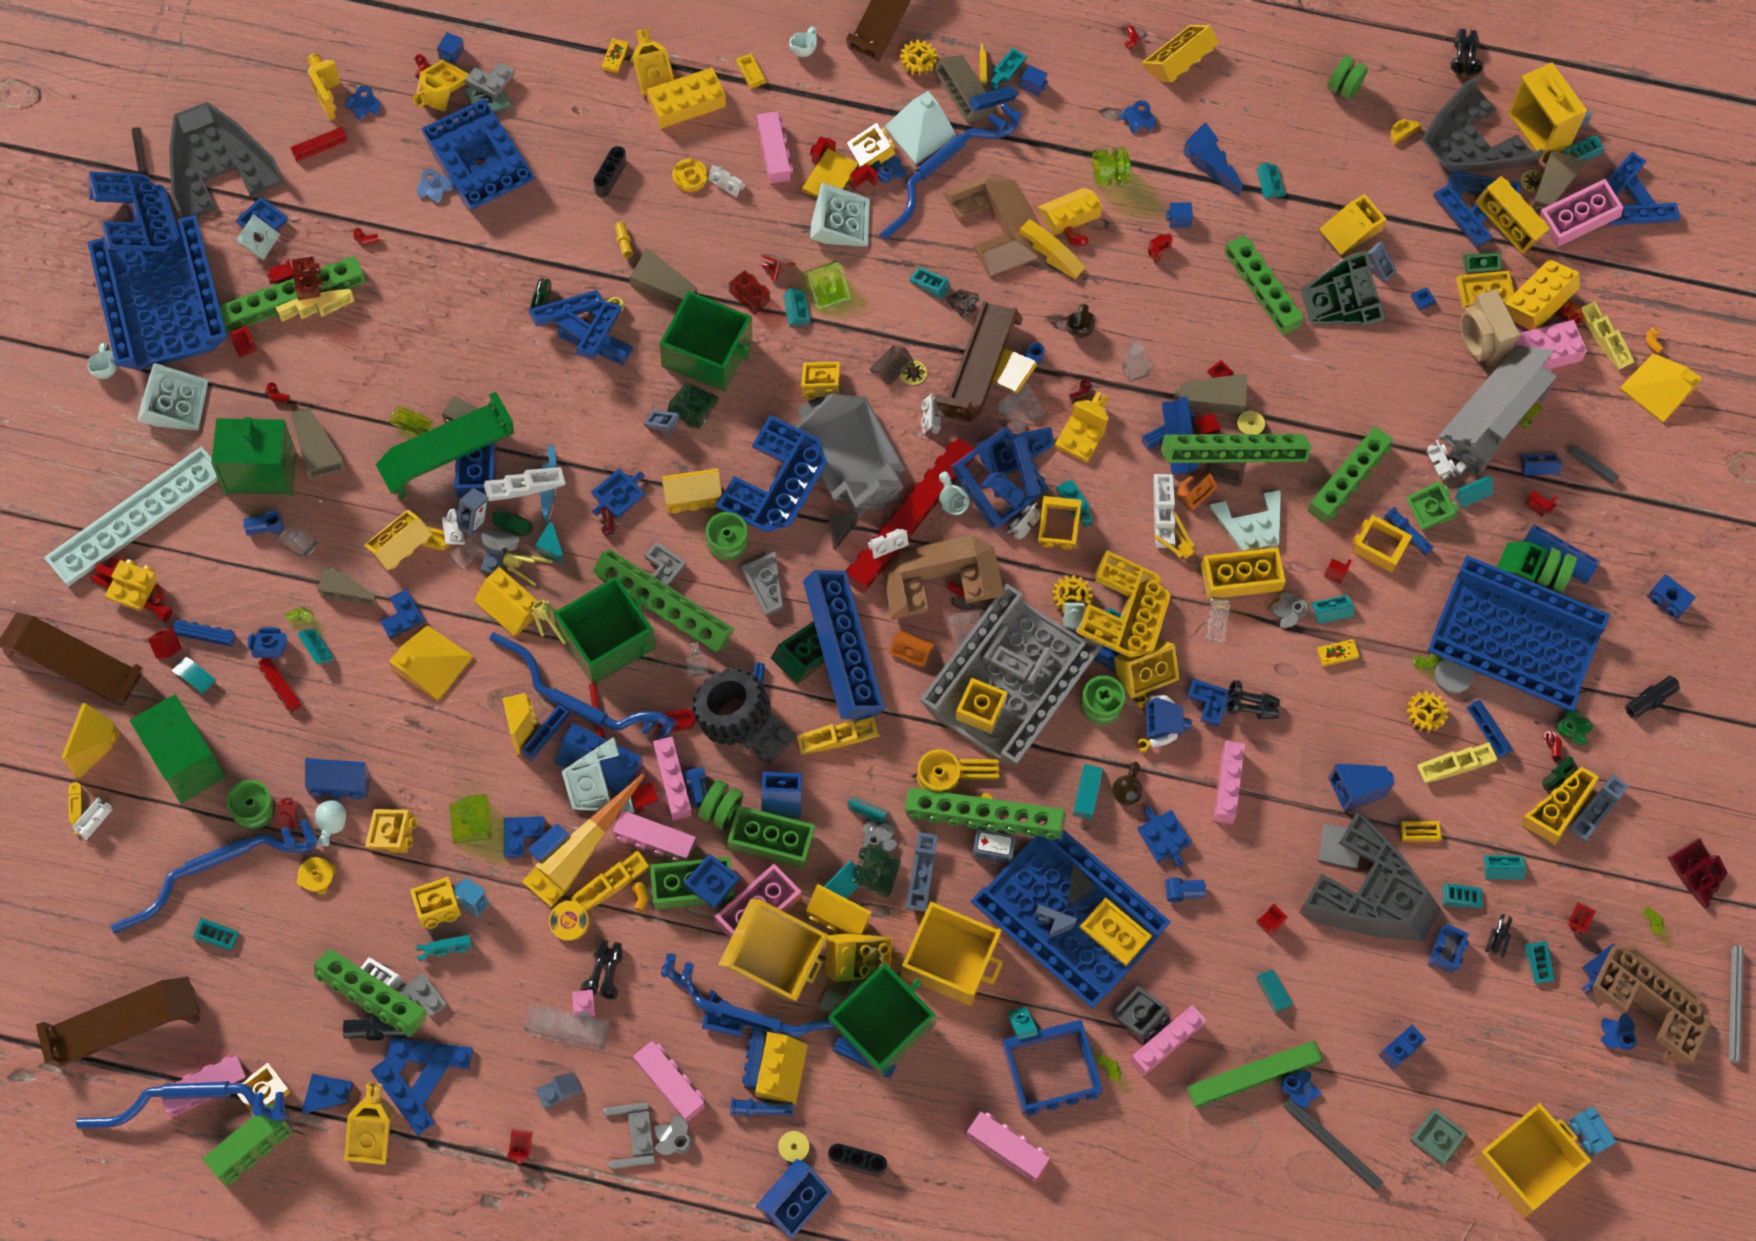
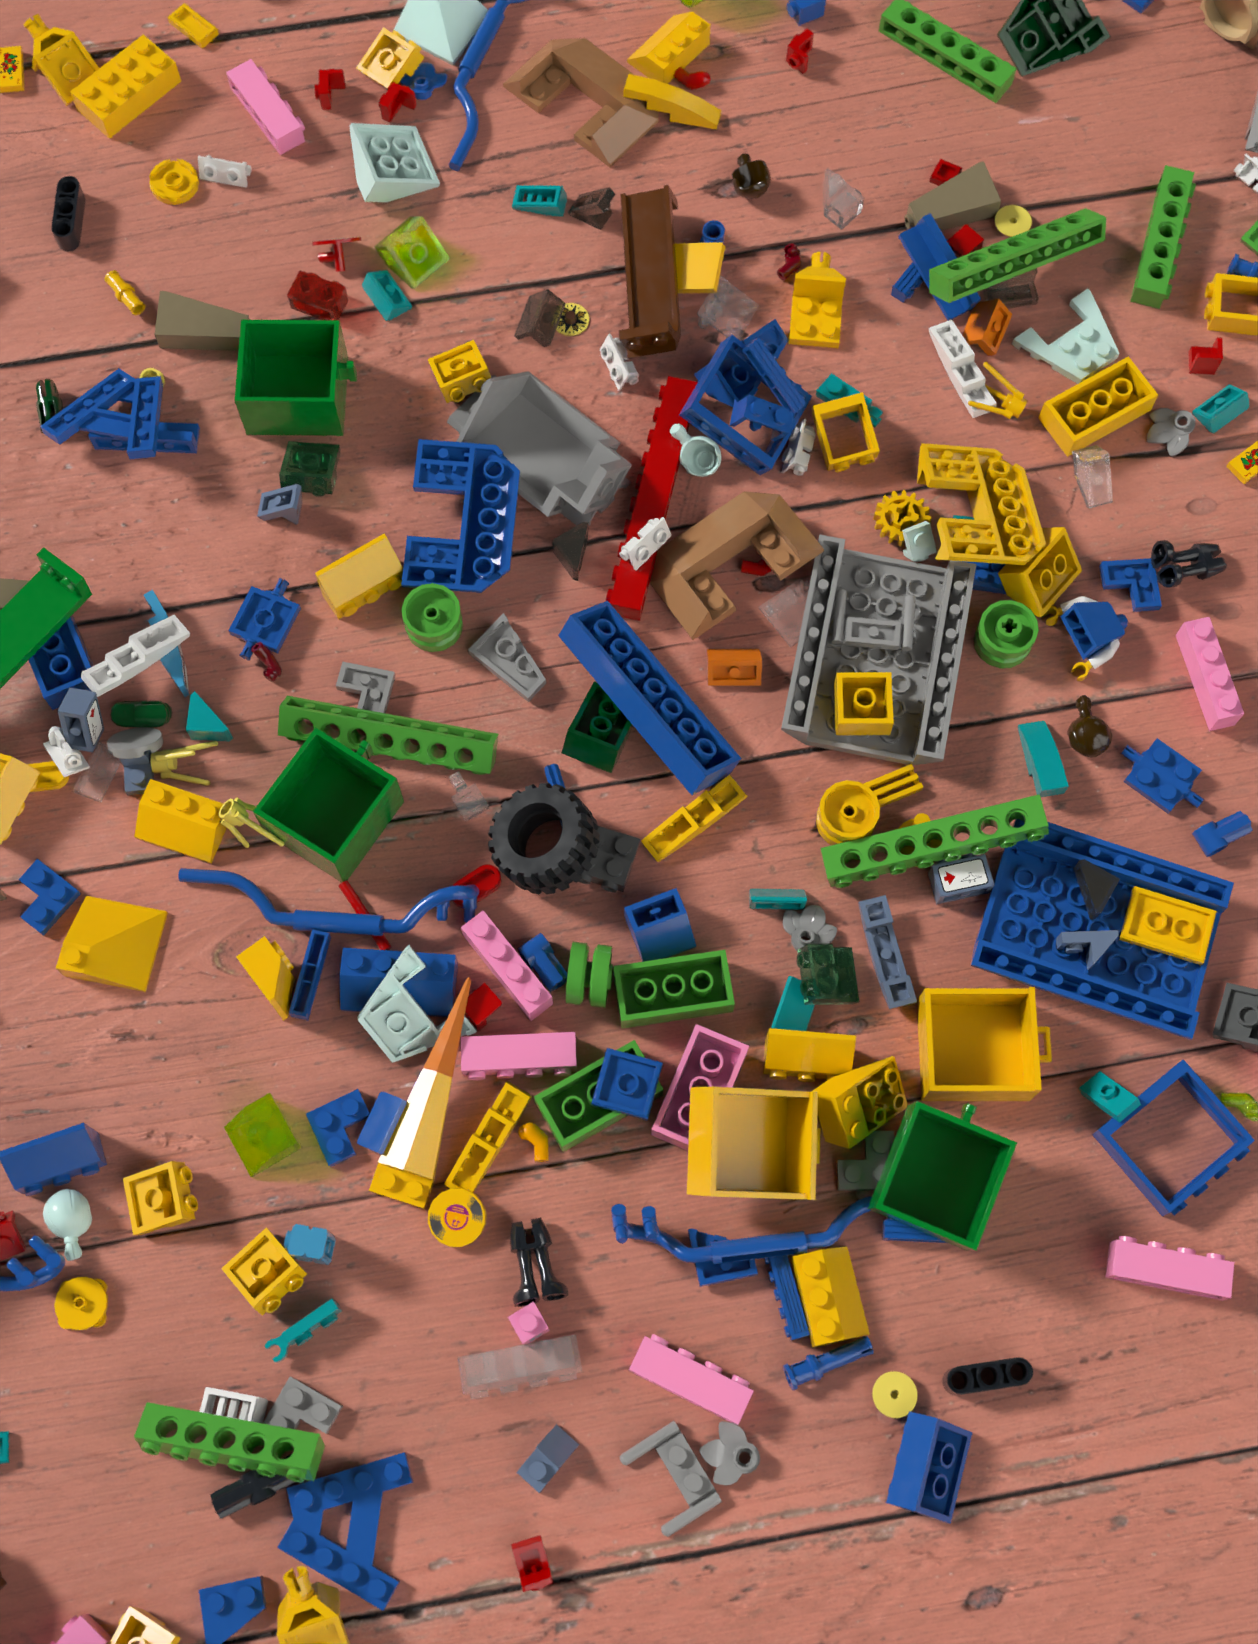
camera: 20 degrees left, 5 degrees up
(832, 170) = (349, 106): yellow tile -> none

